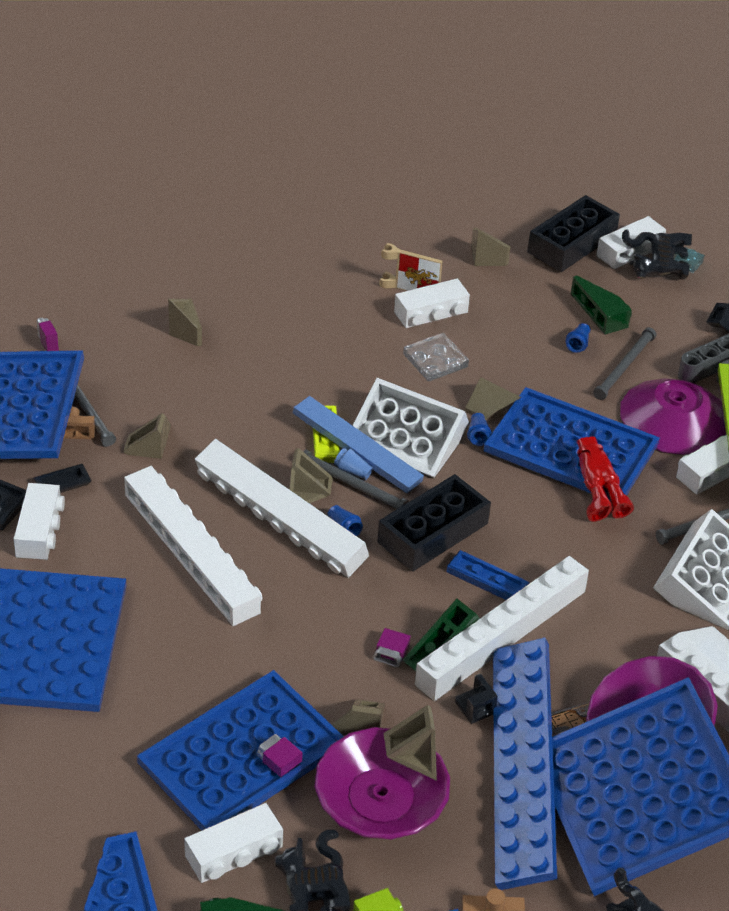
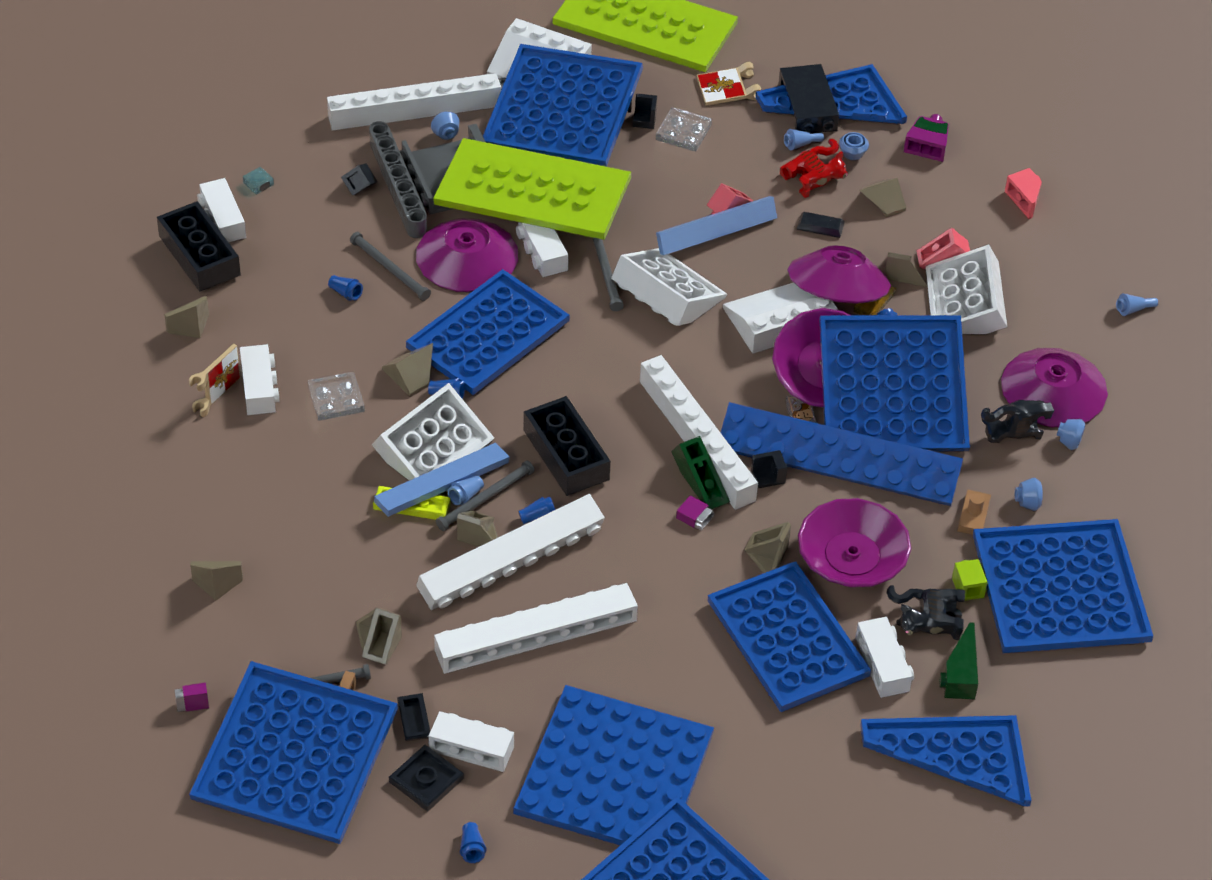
camera: 75 degrees left, 5 degrees up
(279, 754) = (807, 605): magenta piece -> none
(414, 742) = (831, 505): dark tan slope -> none
(485, 575) = (629, 430): blue tile -> none
(598, 474) = (550, 320): red piece -> none
(602, 306) = (308, 258): dark green slope -> none
(663, 251) = (260, 192): black animal -> none

